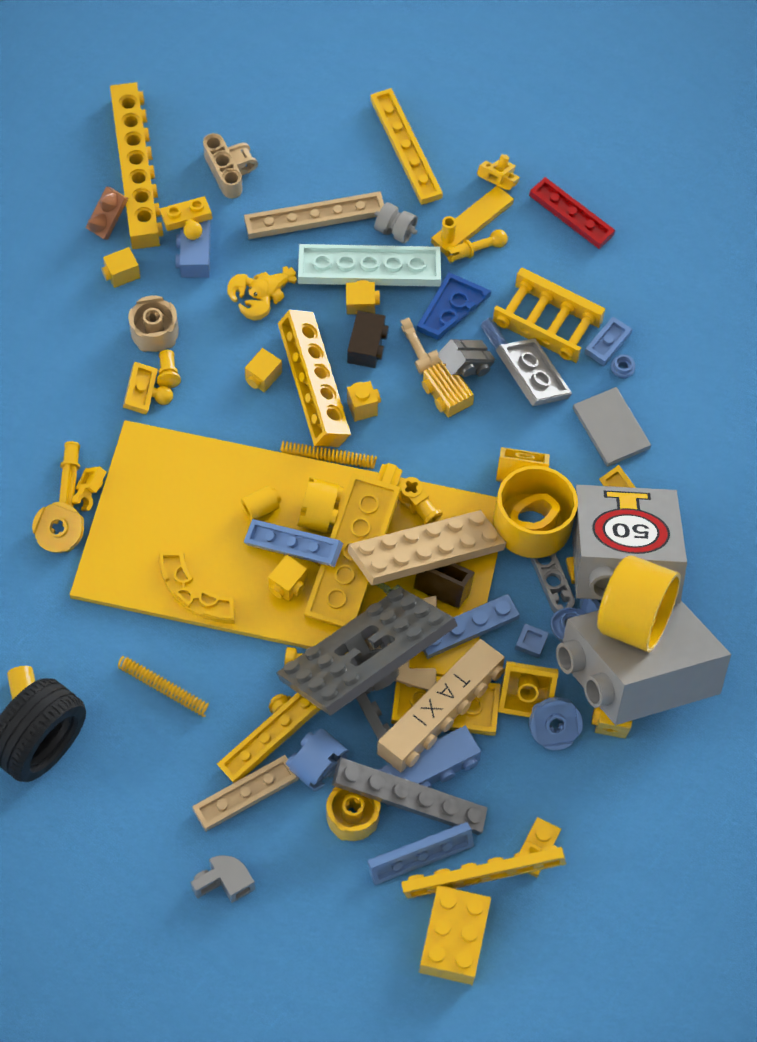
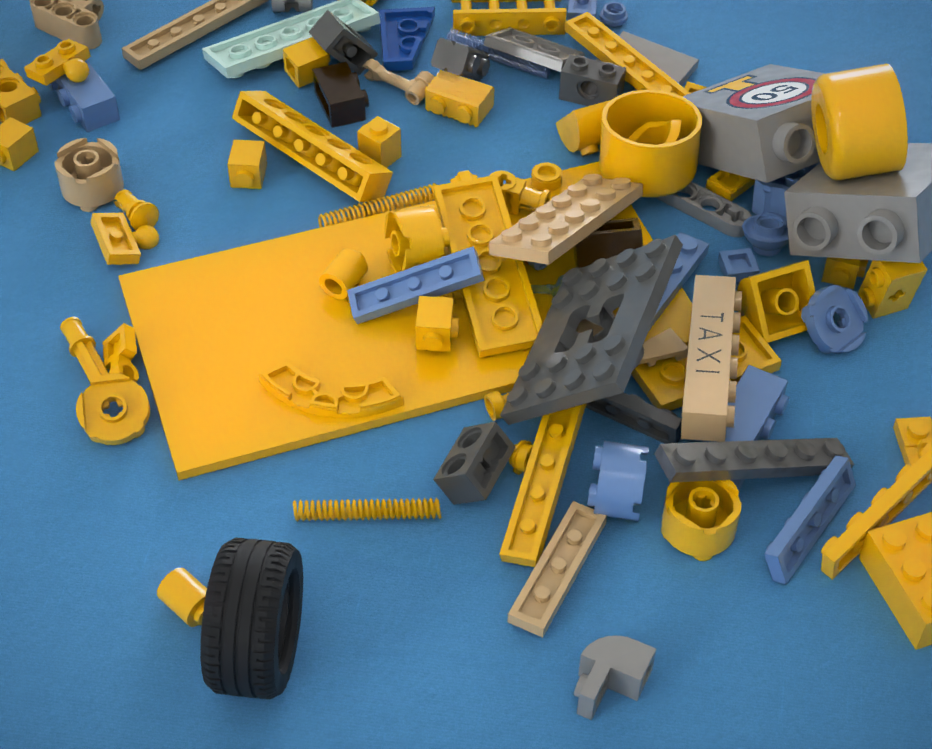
camera: 30 degrees left, 15 degrees down
(243, 694) = (474, 463): none -> dark grey brick
(263, 288) = (189, 100): yellow animal -> none
(393, 296) = (342, 42): none -> dark grey brick
(455, 494) = (546, 176): none -> yellow tile
(551, 426) = (590, 81): none -> dark grey brick
(588, 423) = (611, 48): none -> yellow plate

